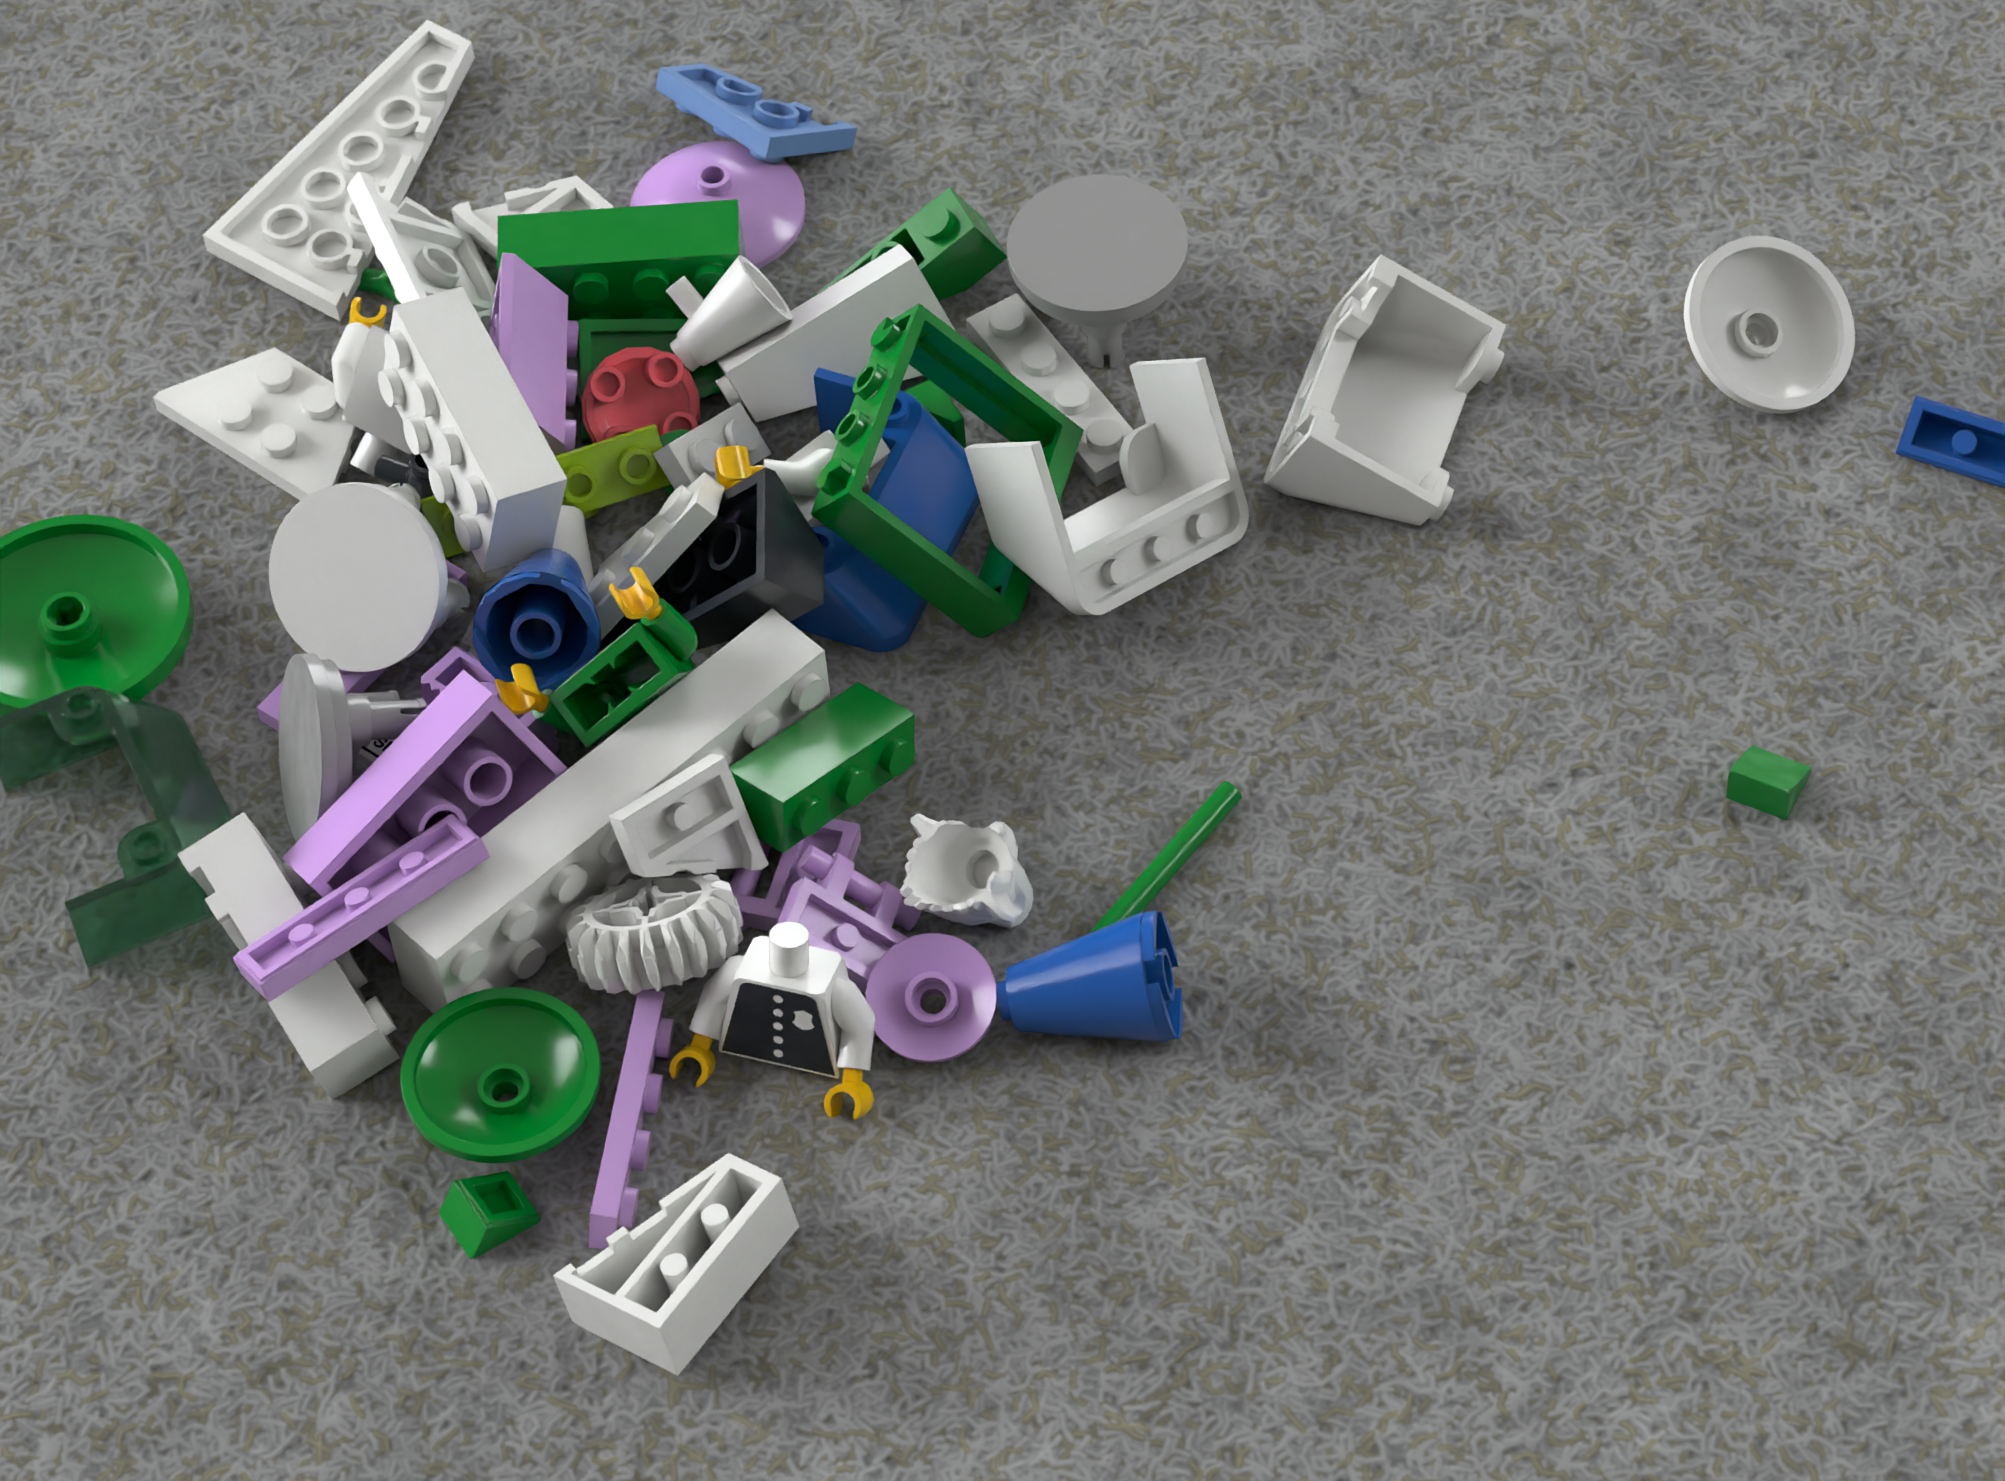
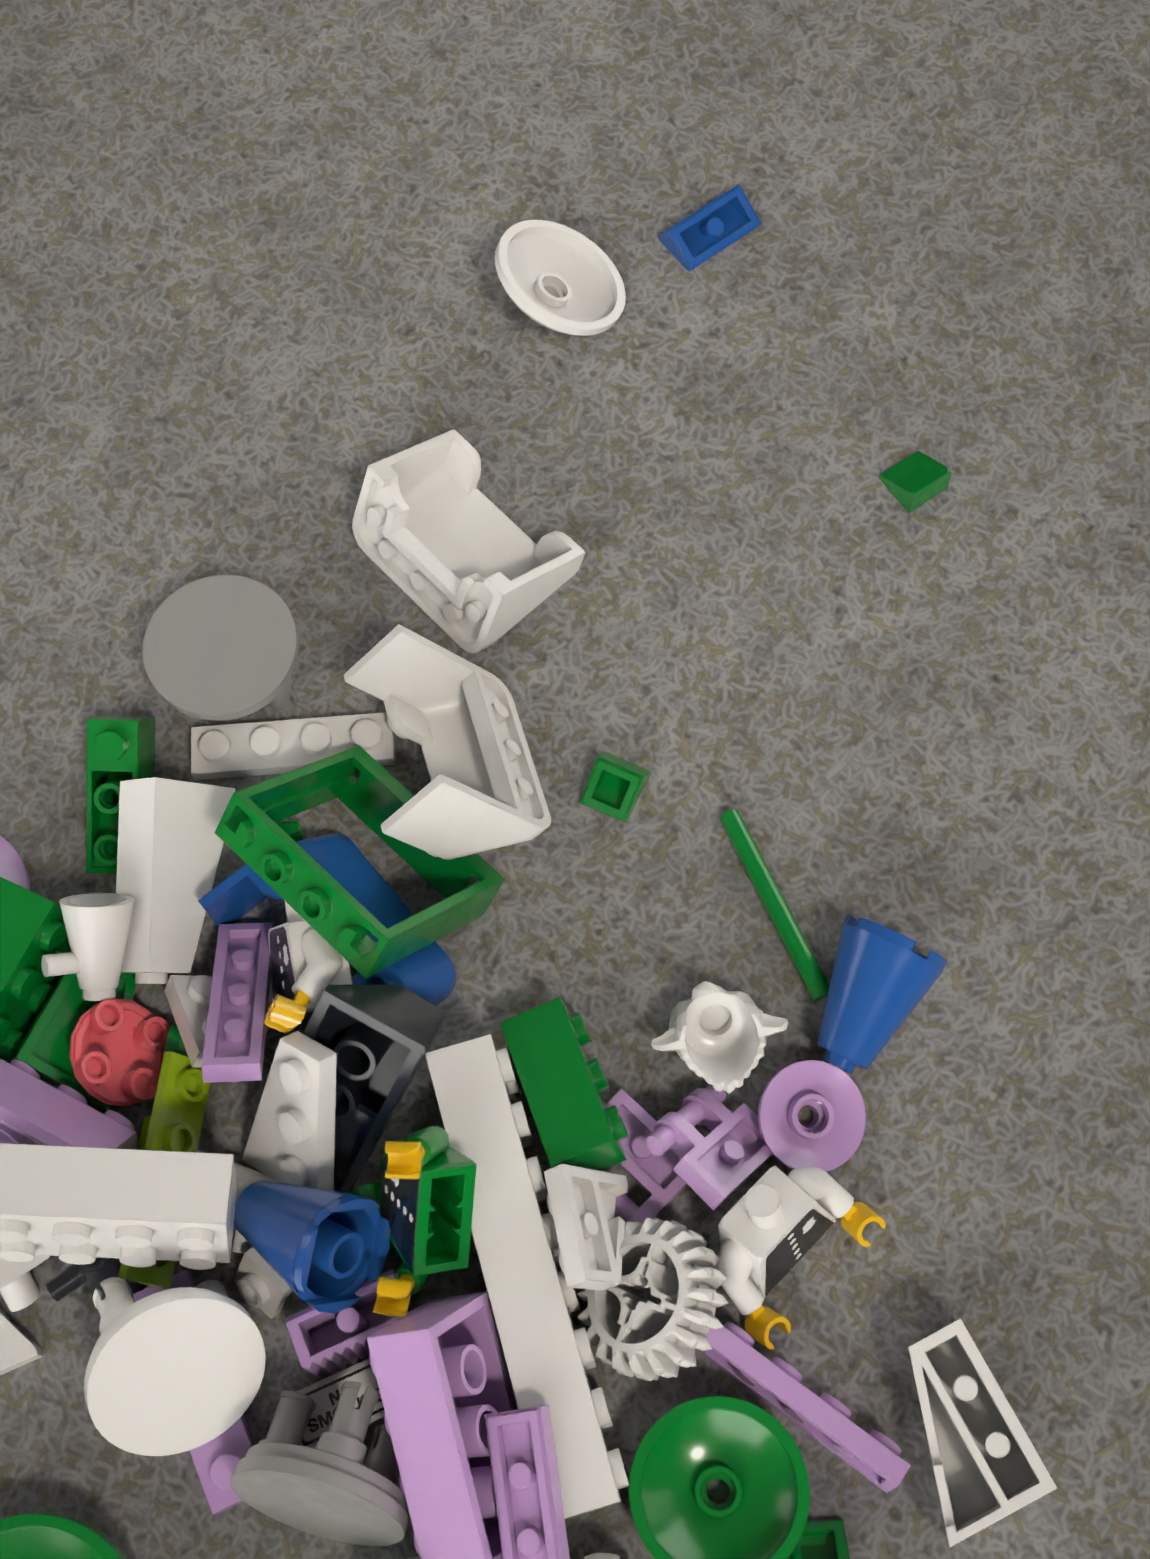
camera: 60 degrees left, 15 degrees up
(685, 451) = (238, 1004): none -> lavender plate
(1198, 677) = (614, 786): none -> green slope

